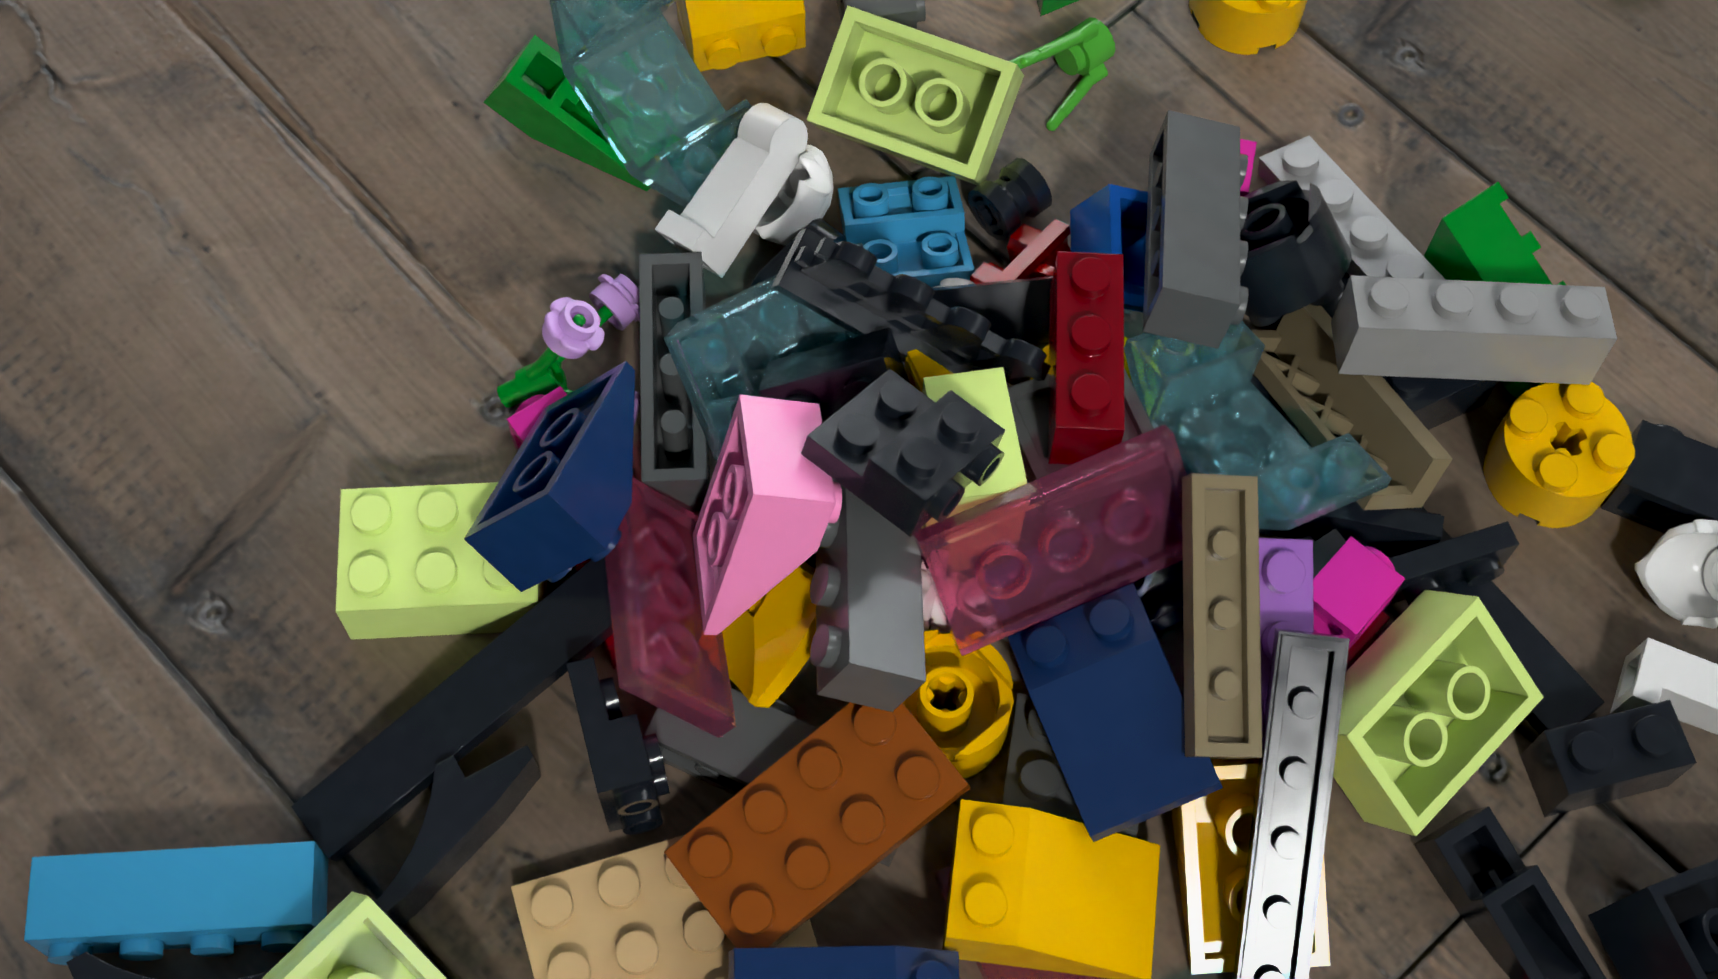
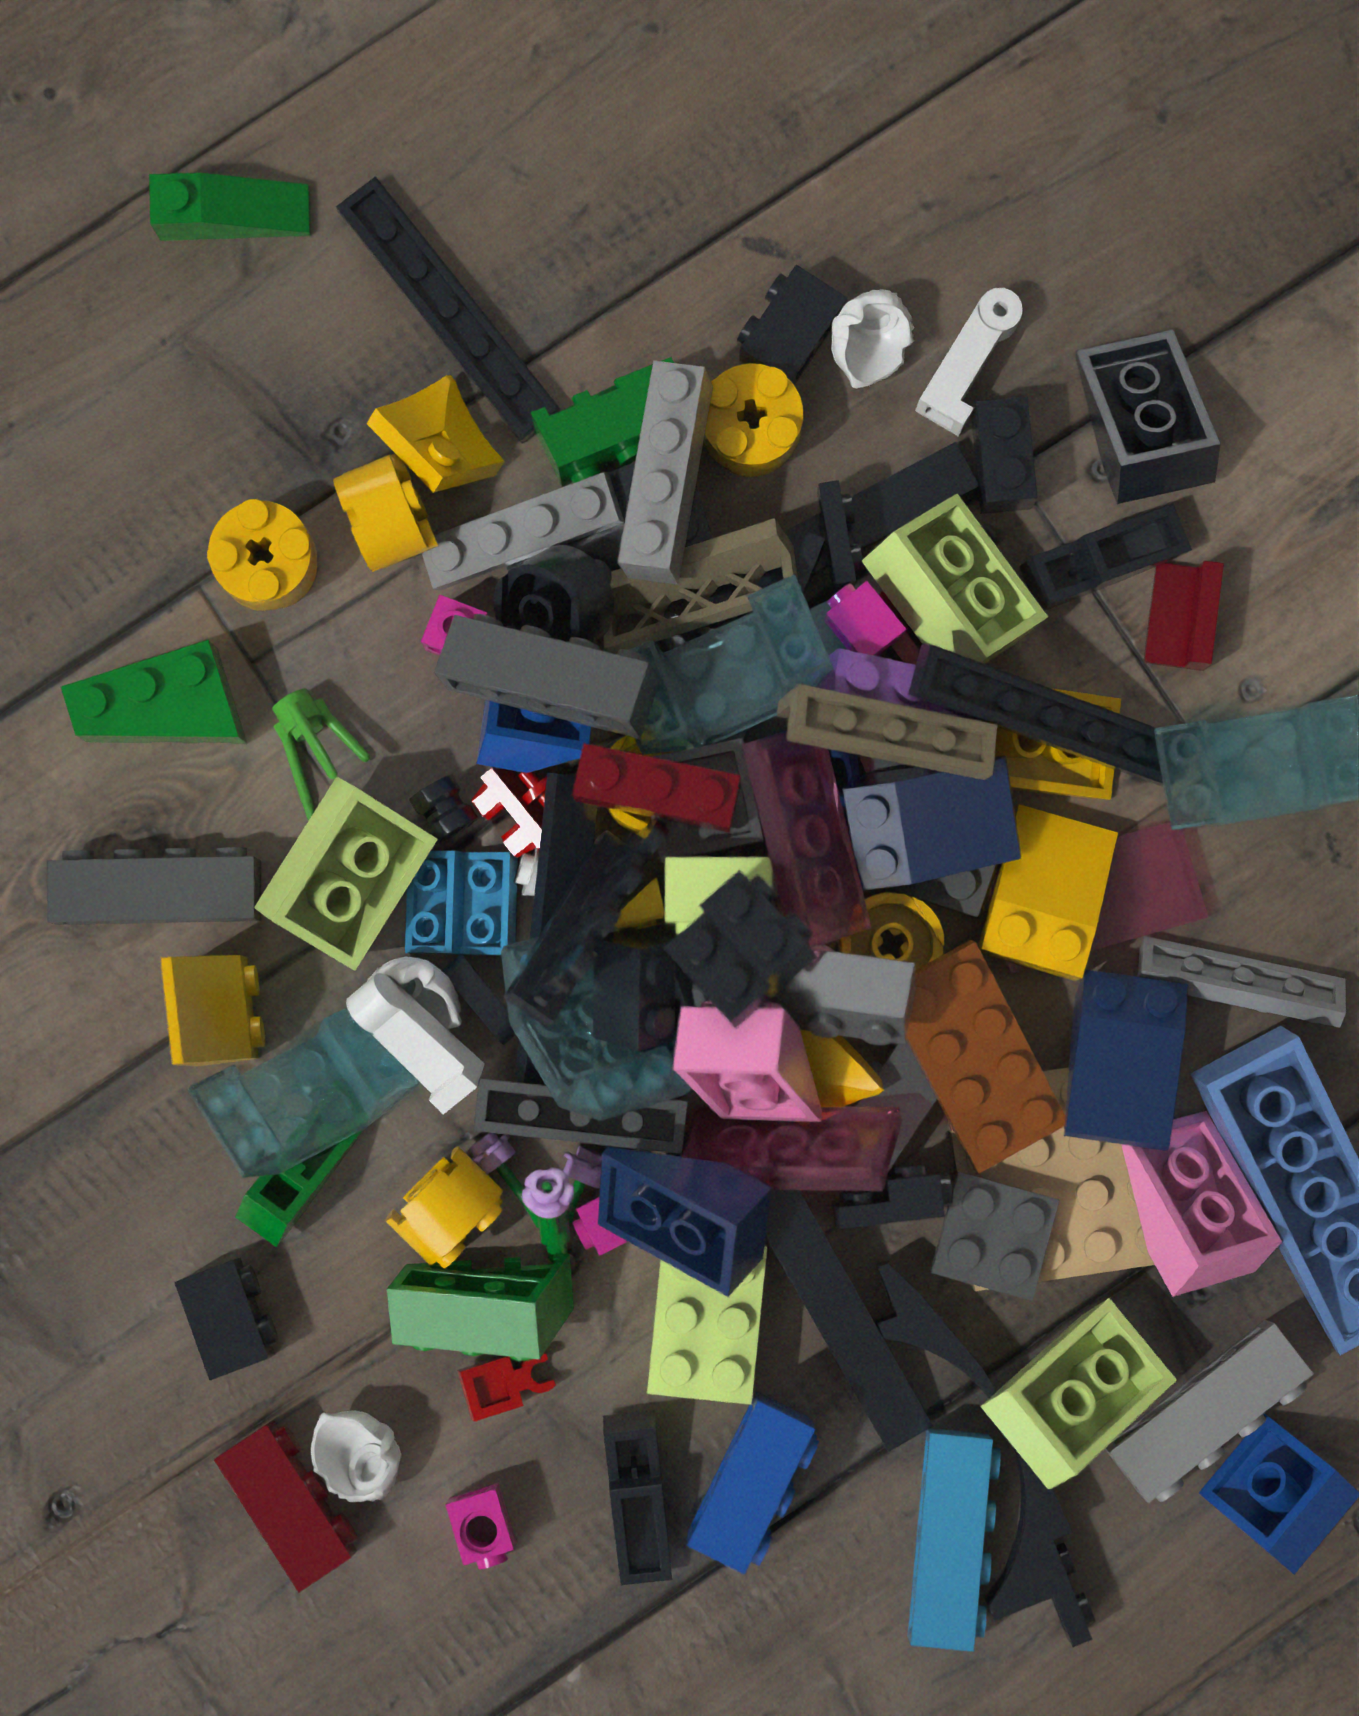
camera: 75 degrees left, 20 degrees up
(175, 327) = (481, 1502): none -> dark pink brick
(190, 152) = (287, 1504): none -> dark red brick
(218, 516) = (637, 1497): none -> black slope
(237, 629) = (753, 1484): none -> blue brick
(250, 207) = (355, 1455): none -> white hair
(344, 347) = (496, 1385): none -> red plate
(398, 66) = (227, 1318): none -> black brick
(430, 311) = (481, 1310): none -> wedge
(544, 248) = (446, 1208): none -> yellow brick
(584, 892) = (994, 1236): none -> dark grey plate
(1334, 81) = (385, 512): none -> yellow brick
(1433, 127) = (437, 437): none -> yellow plate
(1594, 119) = (446, 307): none -> black tile

